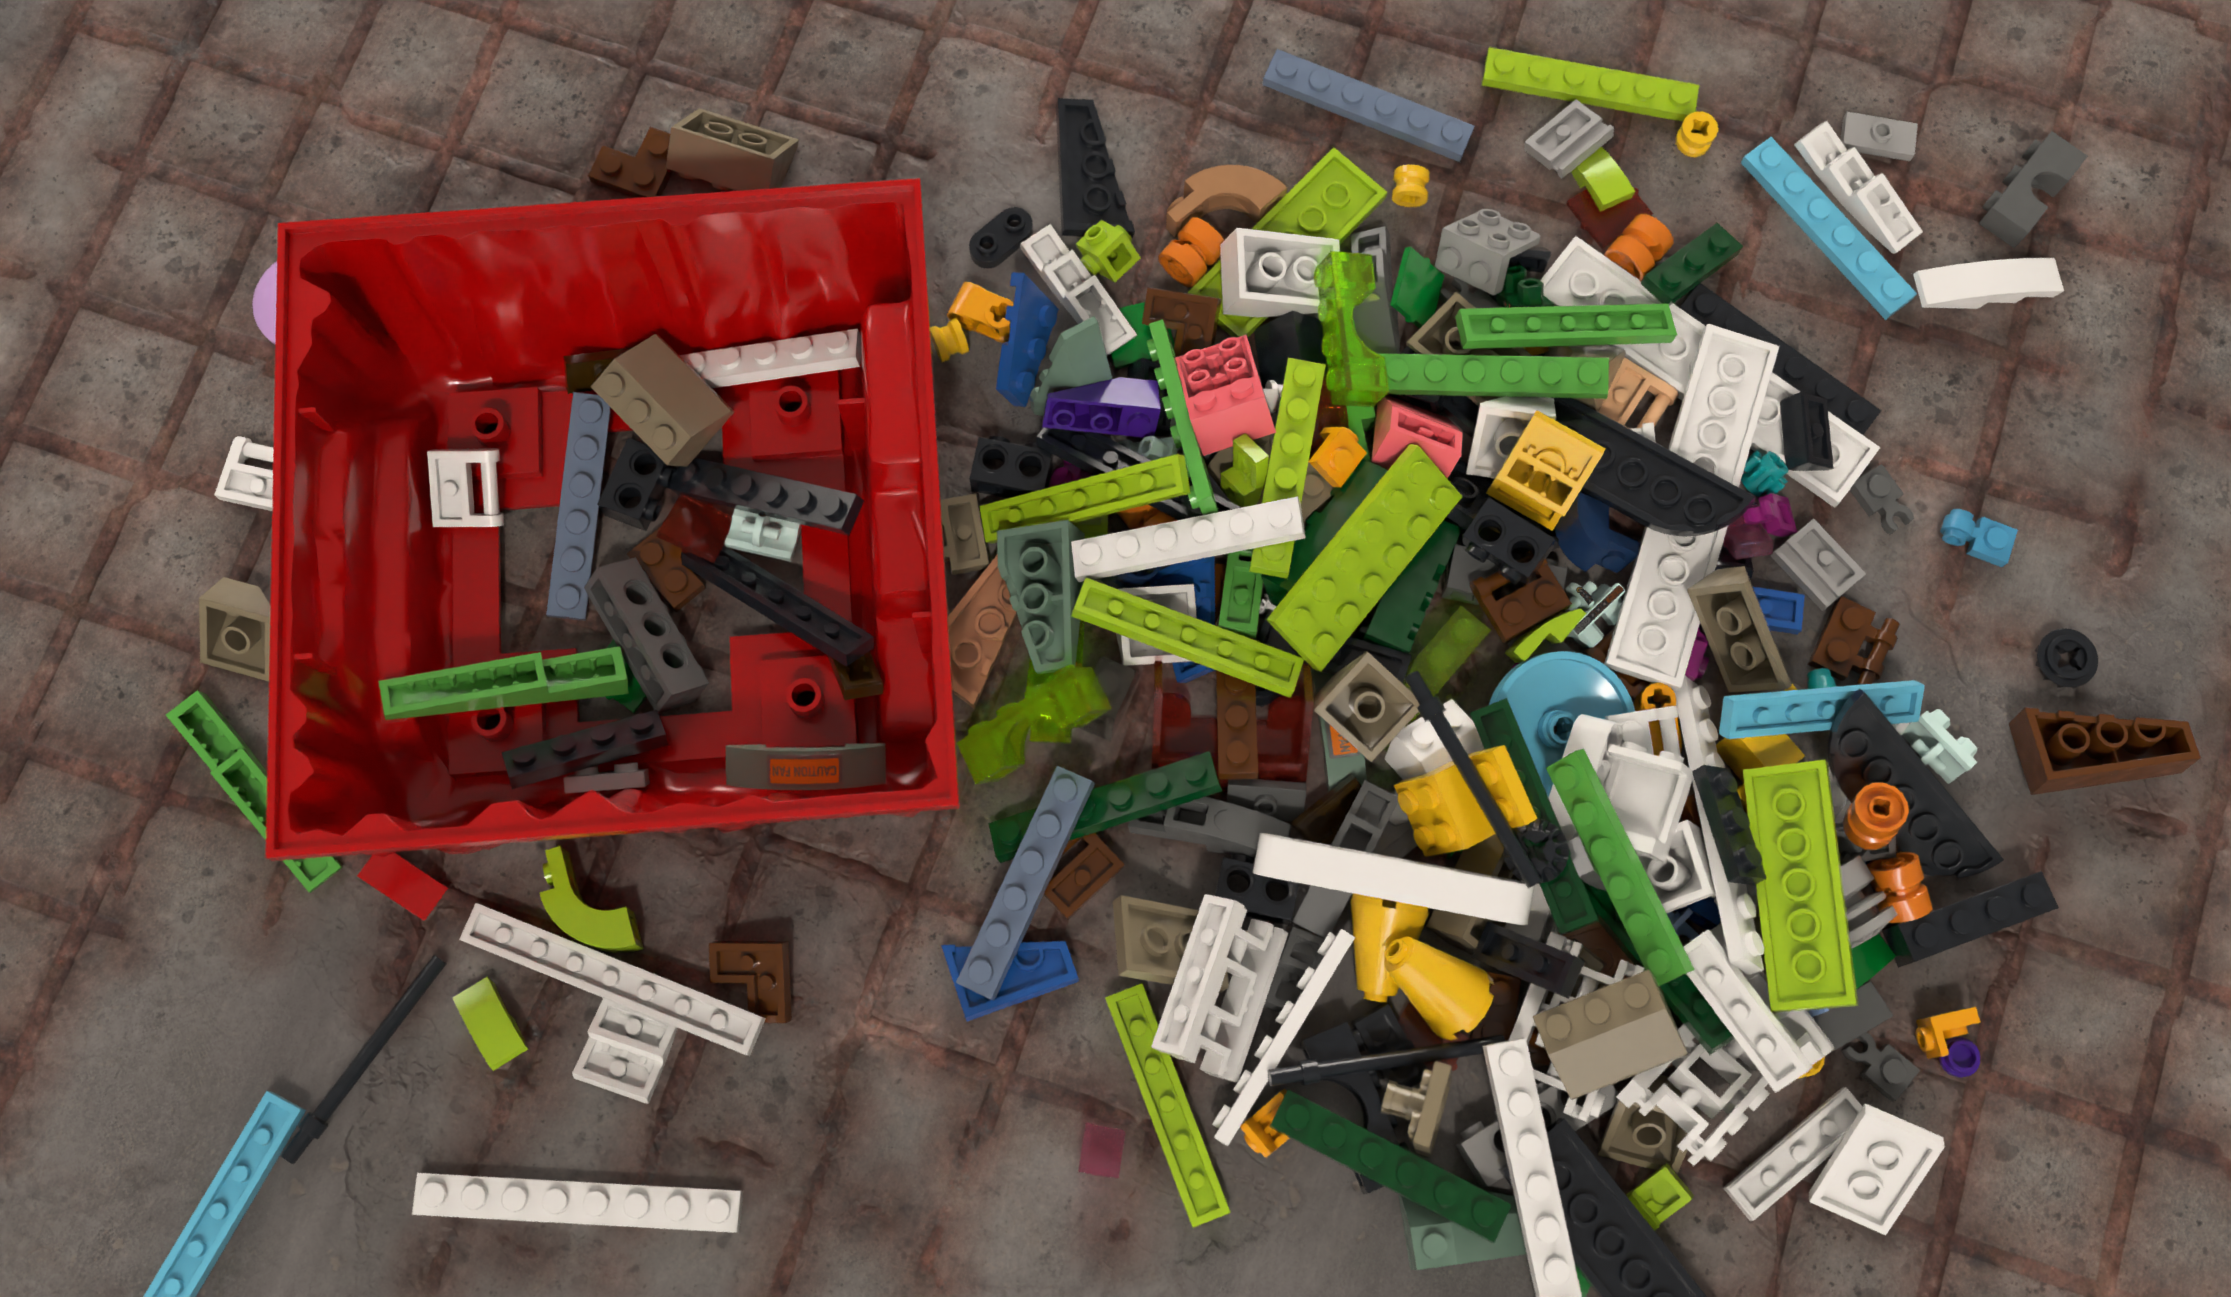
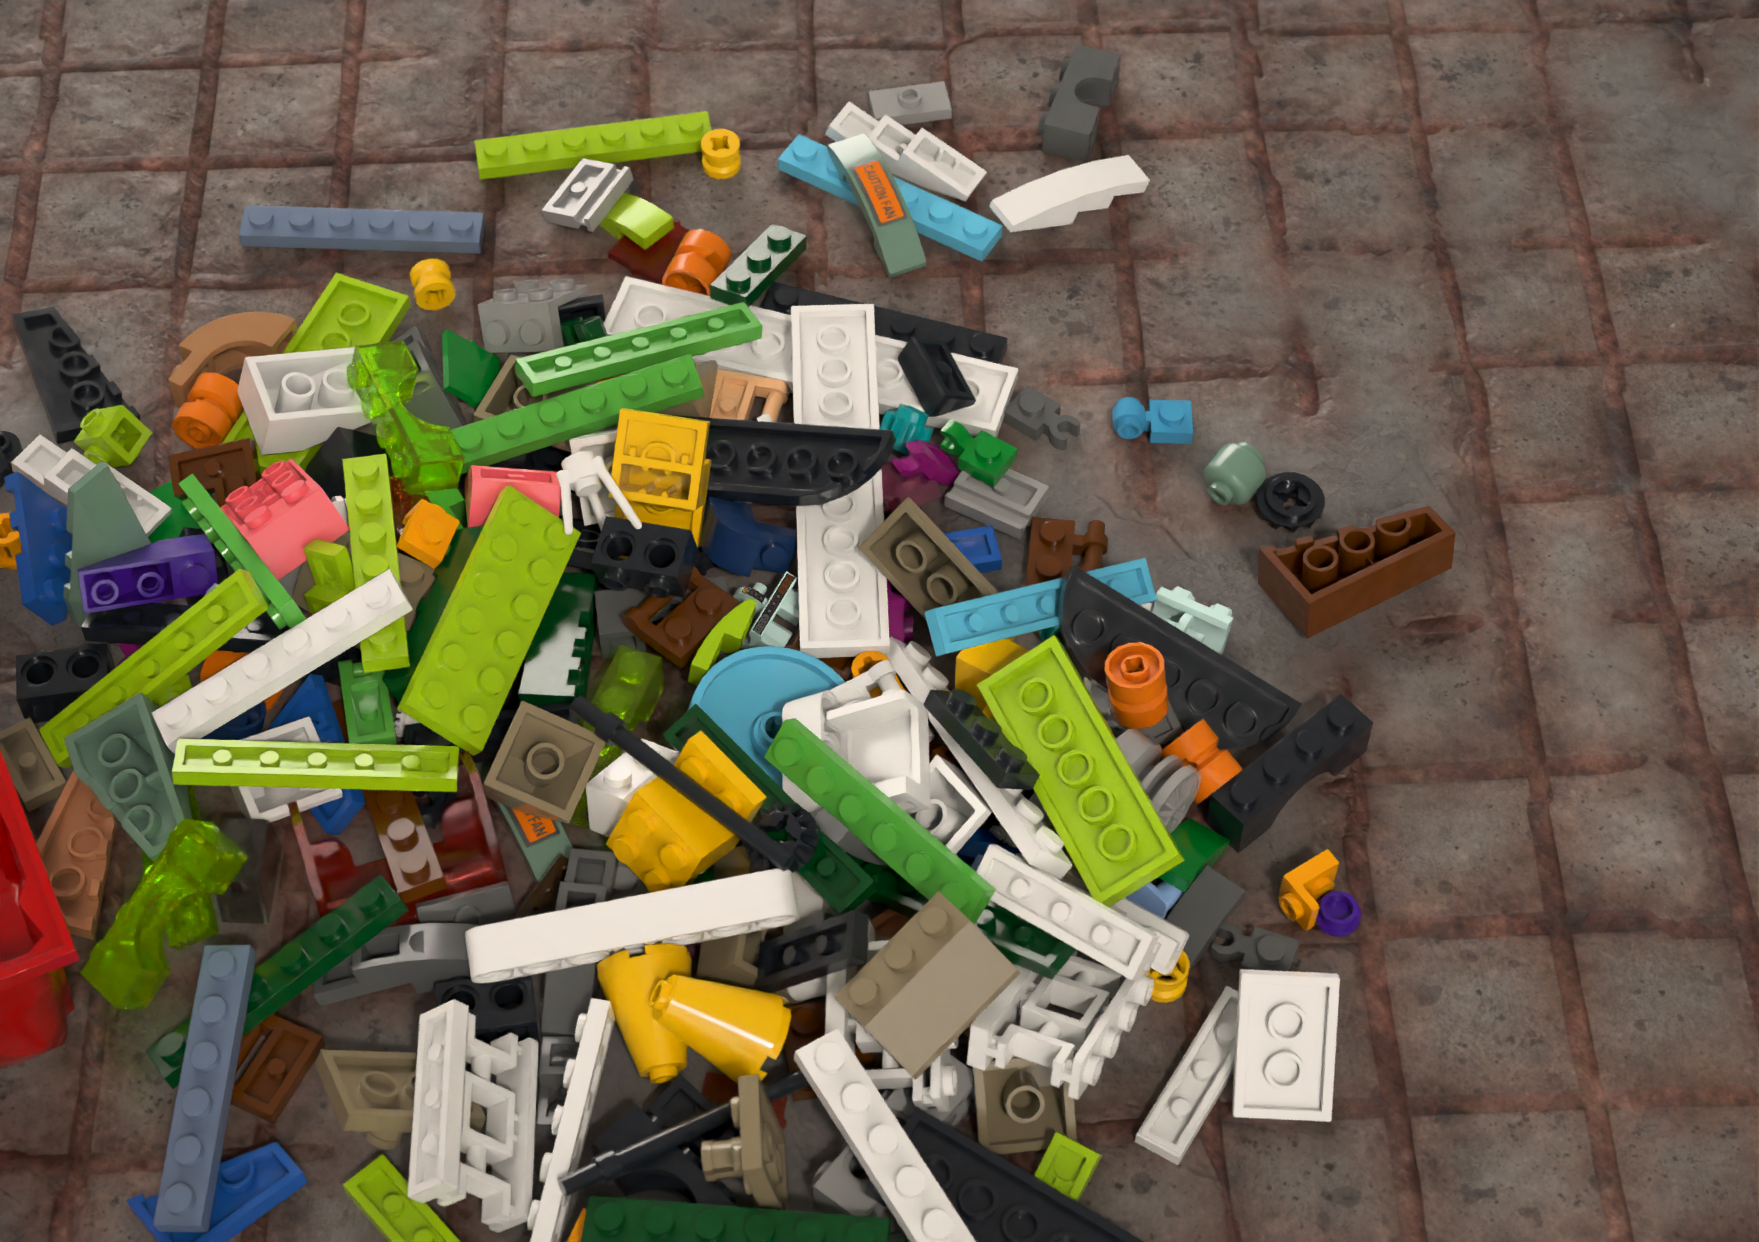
camera: 20 degrees left, 20 degrees down
(1482, 451) = (583, 474): none -> white plant
(1819, 235) = (881, 204): none -> sand green slope
(1820, 527) = (980, 456): none -> green plate
(2029, 618) = (1234, 474): none -> sand green head

